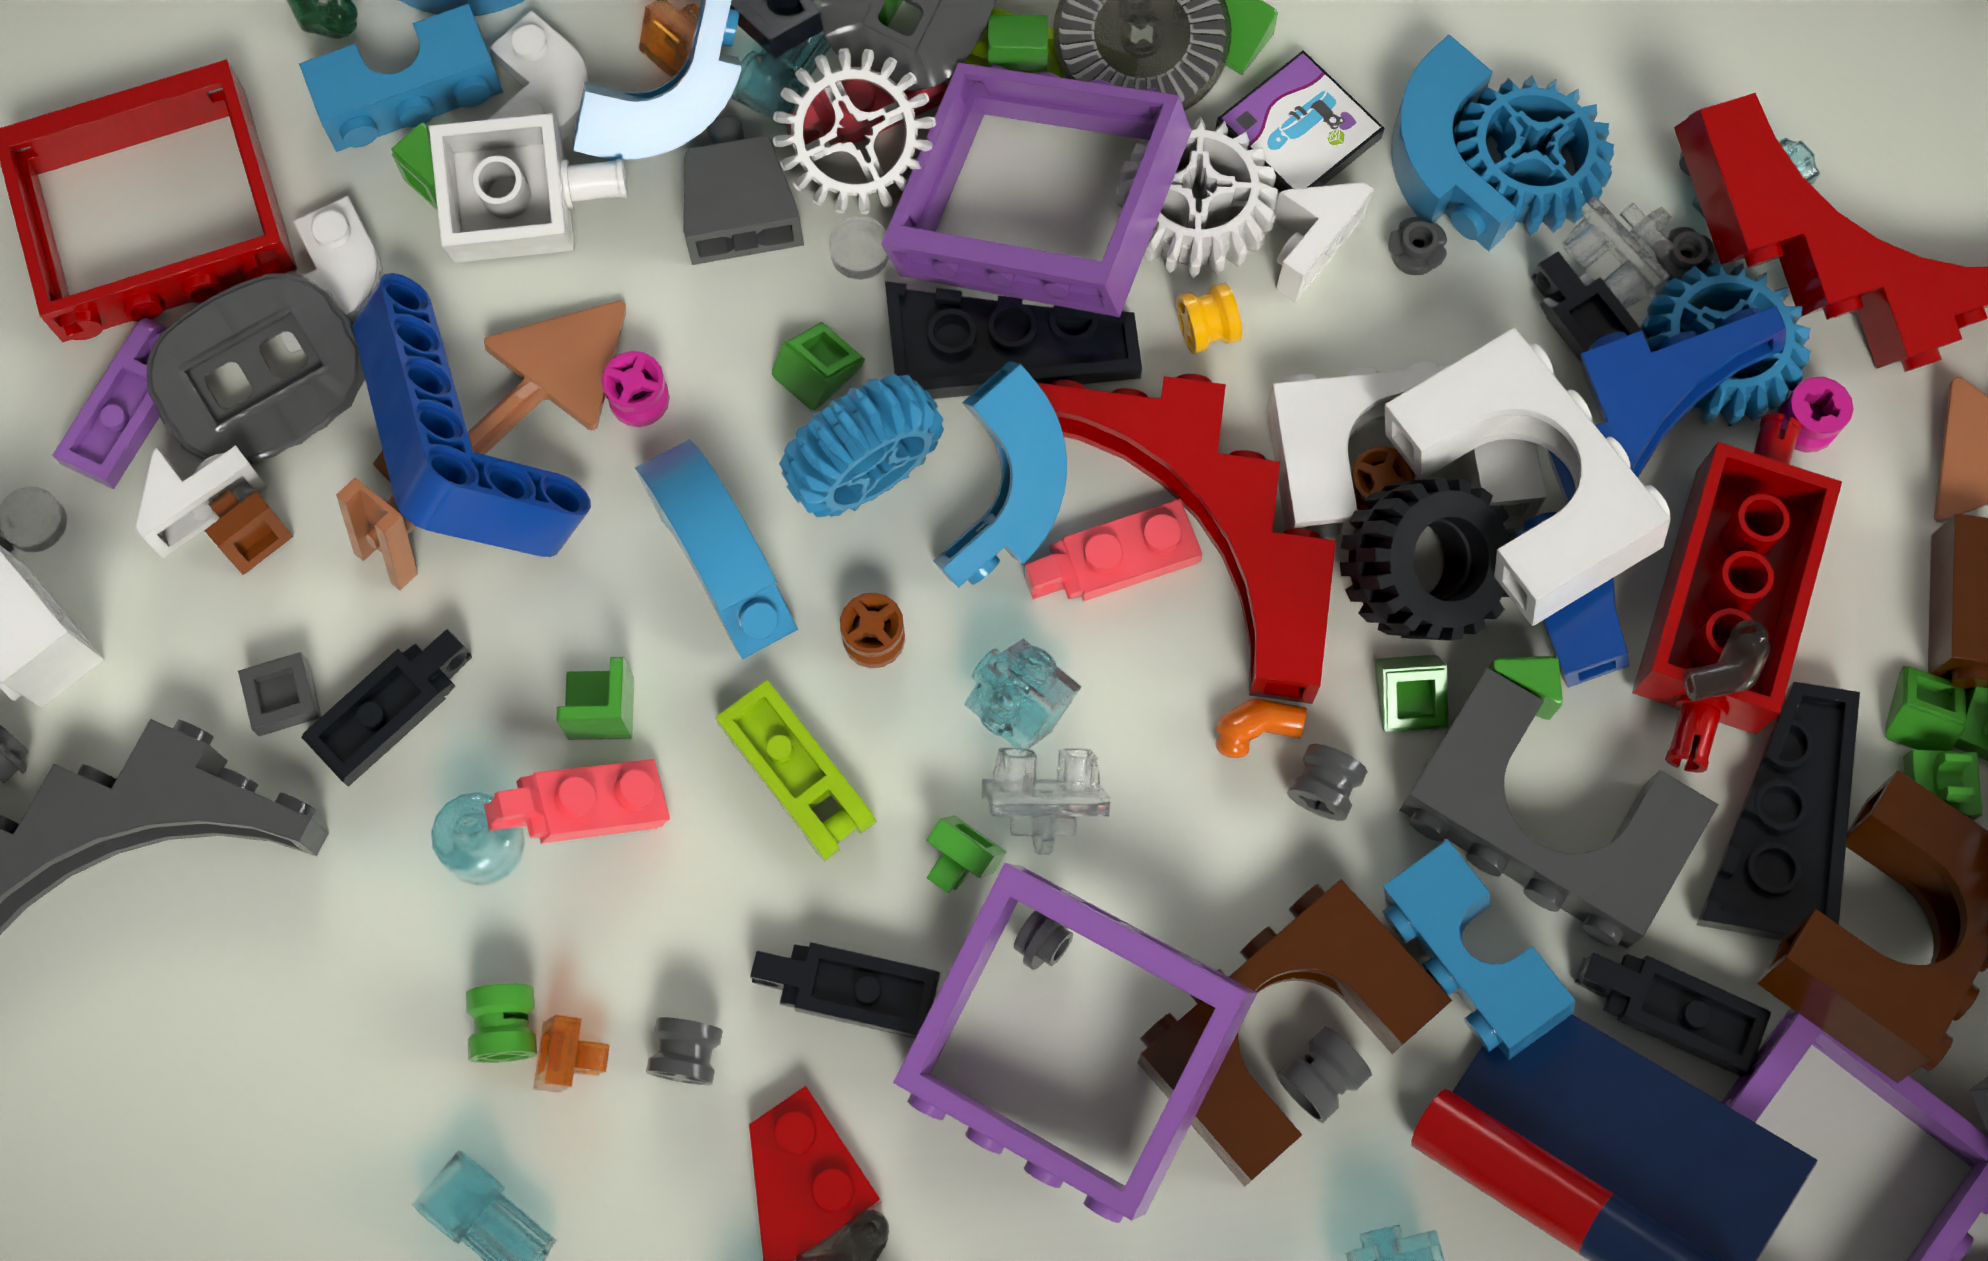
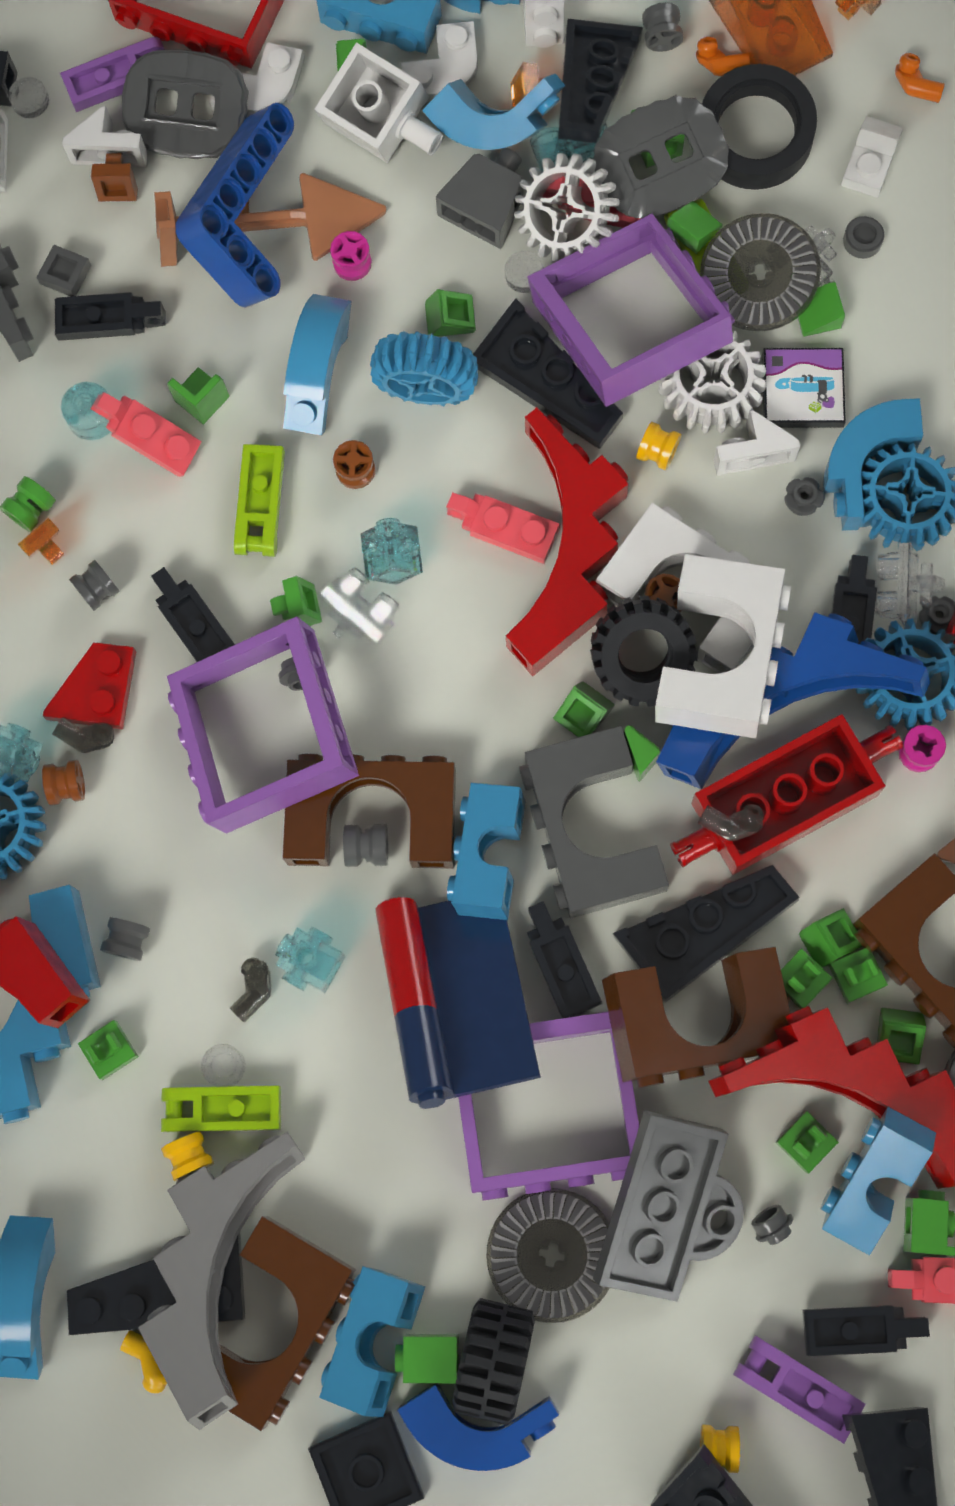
camera: 50 degrees right, 5 degrees up
(1031, 479) = (502, 431): dark azure arch -> none
(1253, 719) = (493, 657): orange arm -> none
(1327, 782) = (497, 716): dark grey wheel -> none

